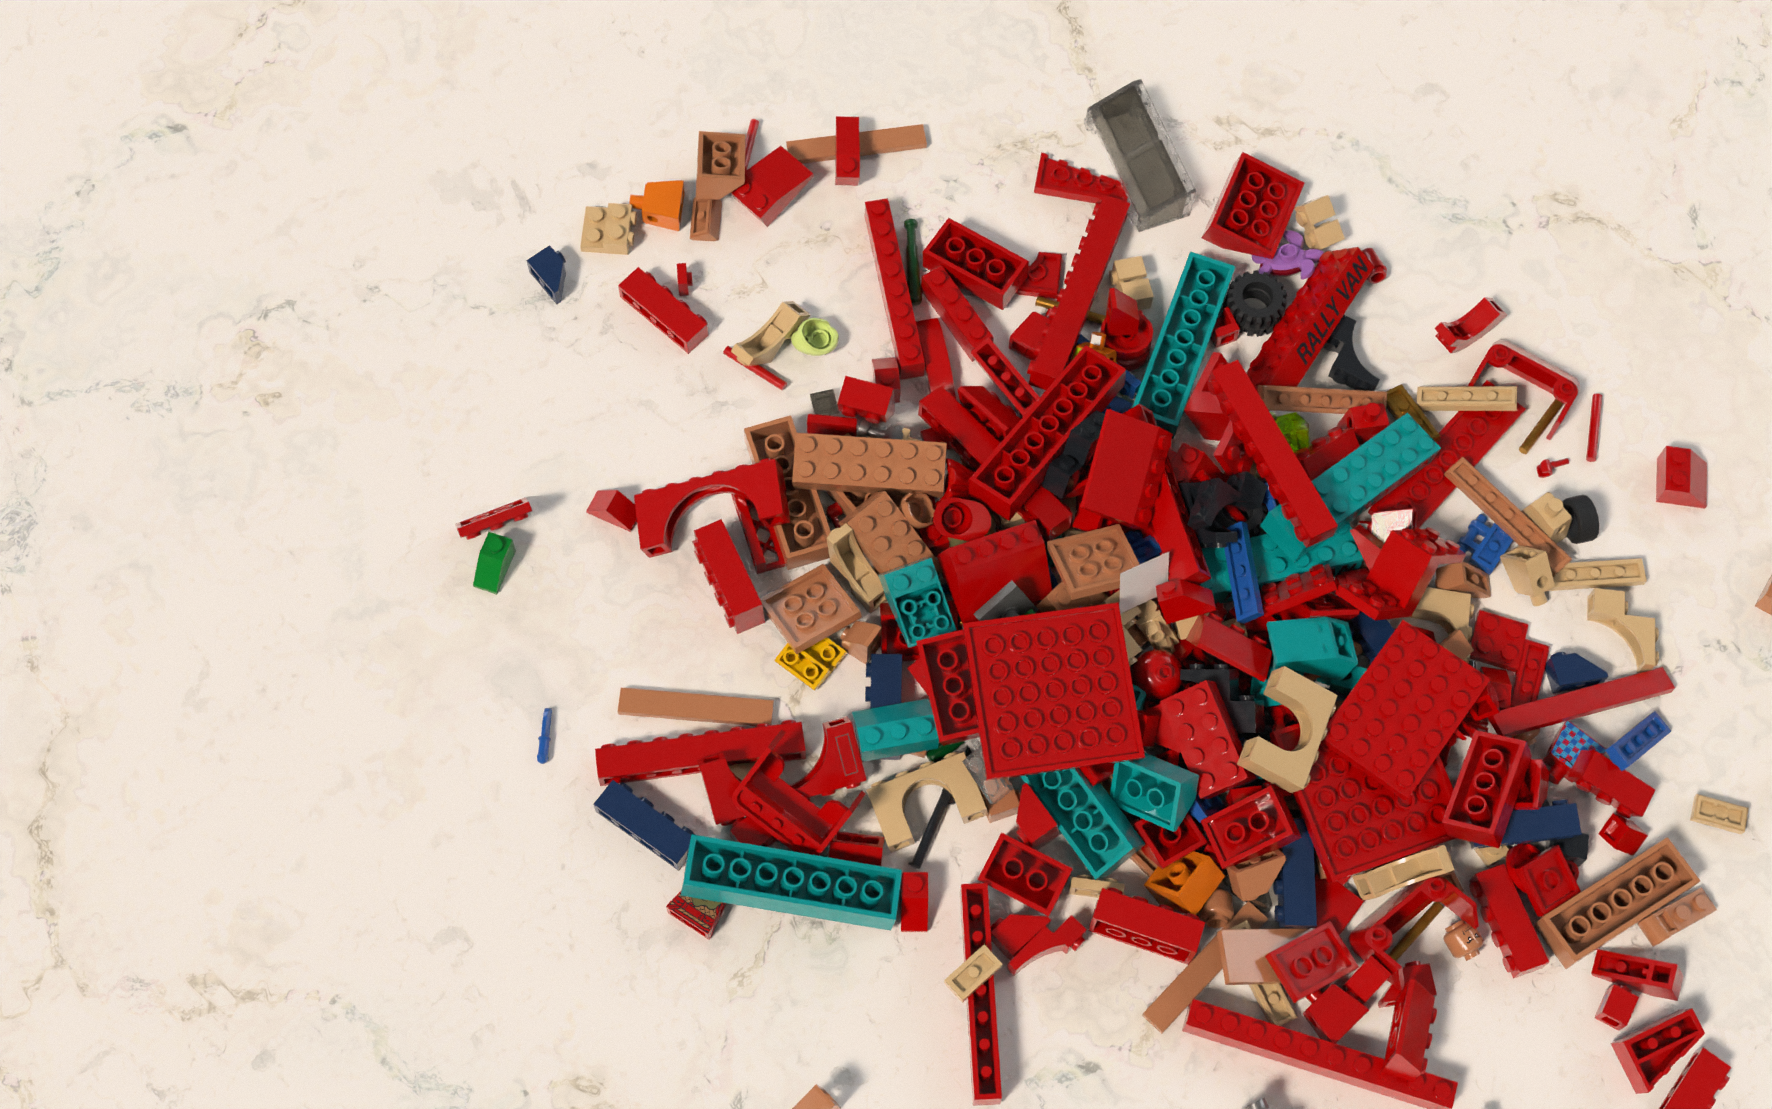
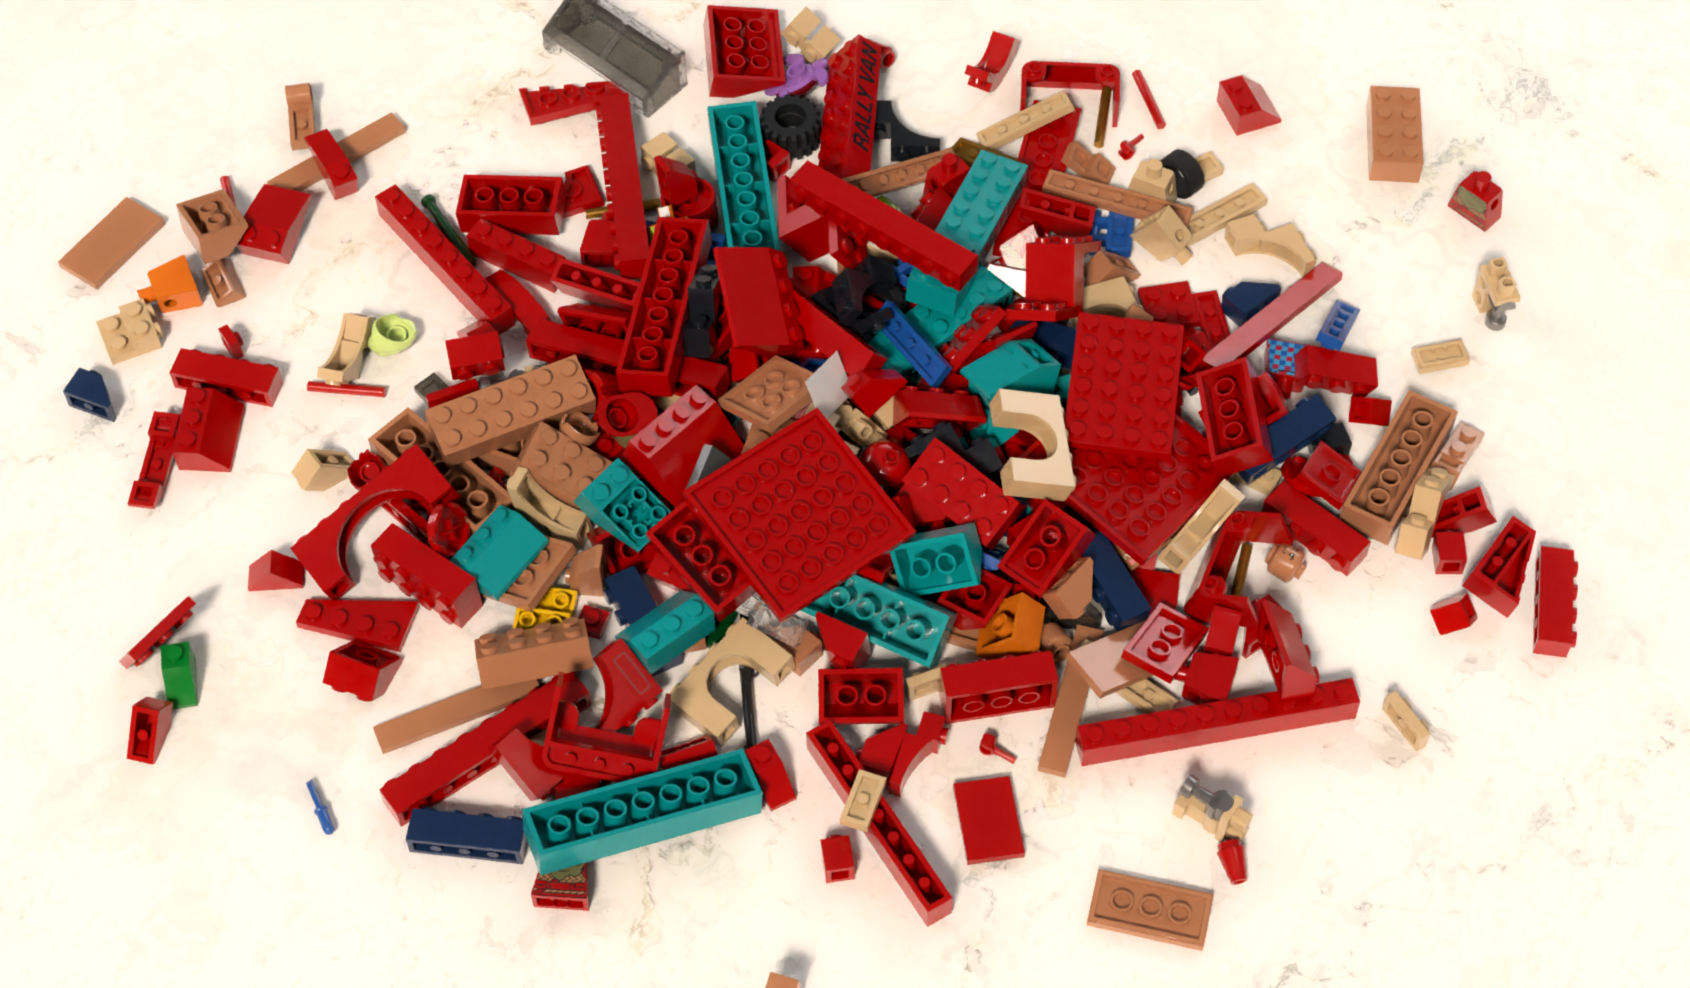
camera: 25 degrees left, 10 degrees down
(447, 597) = (148, 729): none -> red slope
(571, 360) = (157, 461): none -> red slope
(624, 352) = (208, 431): none -> red slope
(634, 138) = (111, 243): none -> nougat tile
(637, 632) = (361, 670): none -> red slope
(662, 588) = (367, 621): none -> red wing
(698, 434) = (321, 469): none -> tan slope
(730, 454) = (365, 469): none -> red hair
(763, 548) = (447, 529): none -> red tile
(778, 692) = (533, 653): none -> nougat brick
(796, 587) = (500, 551): none -> teal slope
(844, 684) = (595, 620): none -> red plate
(846, 90) = (300, 113): none -> nougat plate
(930, 1005) = (837, 858): none -> red brick
(1075, 1038) = (988, 820): none -> red tile
(1111, 971) = (988, 747): none -> red hand
(1444, 505) = (1057, 213): none -> red slope
(1500, 467) = (1088, 166): none -> nougat slope
(1587, 1066) = (1453, 614): none -> red panel
(1610, 521) = (1210, 166): none -> tan plate
(1614, 959) = (1423, 513): none -> tan arch

